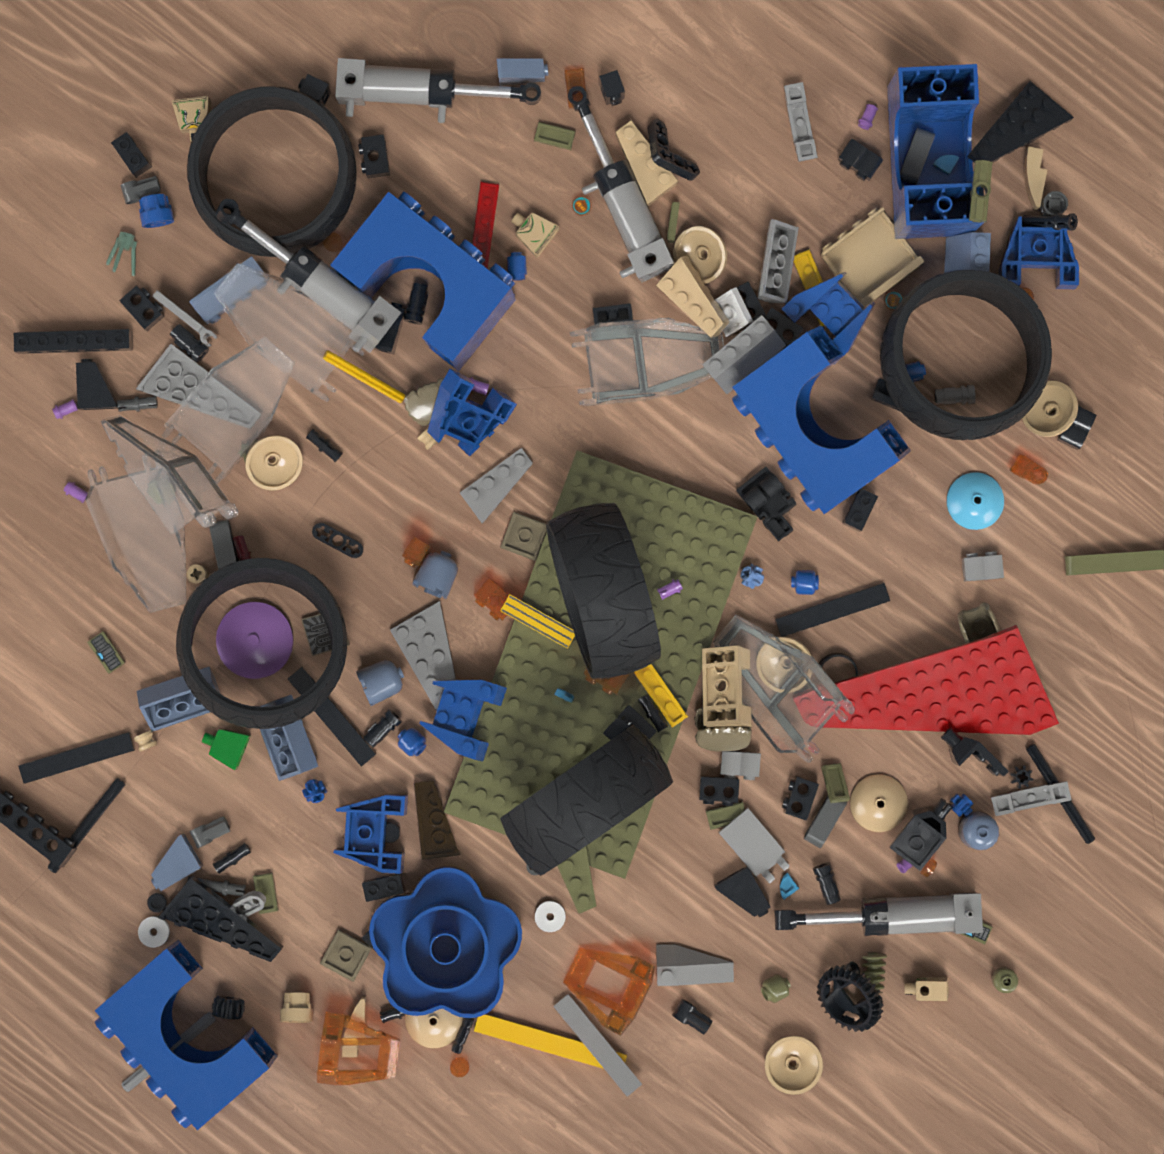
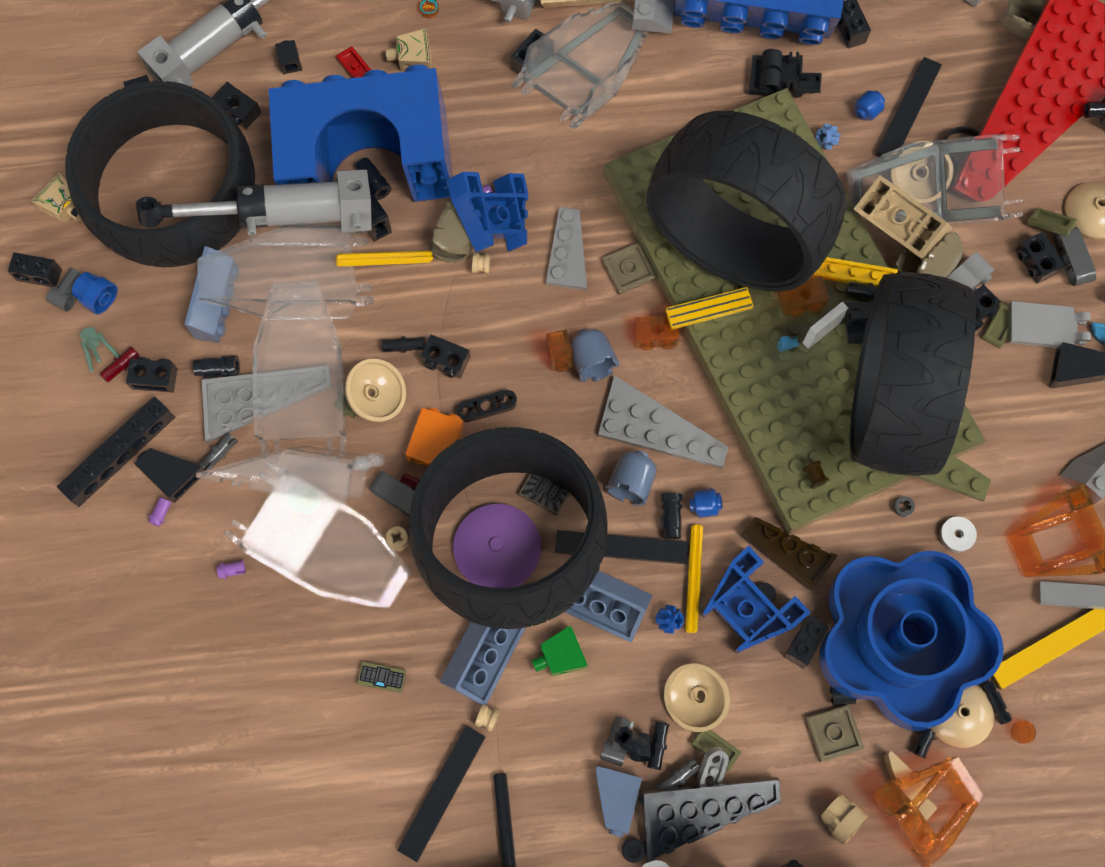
camera: 40 degrees left, 15 degrees down
(128, 279) = (119, 364): none -> dark red axle
(204, 333) = (193, 346): light grey tile -> none
(216, 844) = (635, 743): none -> black piece
(274, 855) = (686, 704): none -> tan dish
(282, 531) = (433, 435): none -> orange brick
(346, 479) = (448, 352): none -> black brick
(358, 779) = (694, 576): none -> yellow axle
(446, 151) = (288, 56): none -> black brick
(460, 712) = (721, 436): blue wedge -> none
(490, 795) = (816, 474): none -> dark brown bush
(592, 708) = (825, 325): none -> white tile

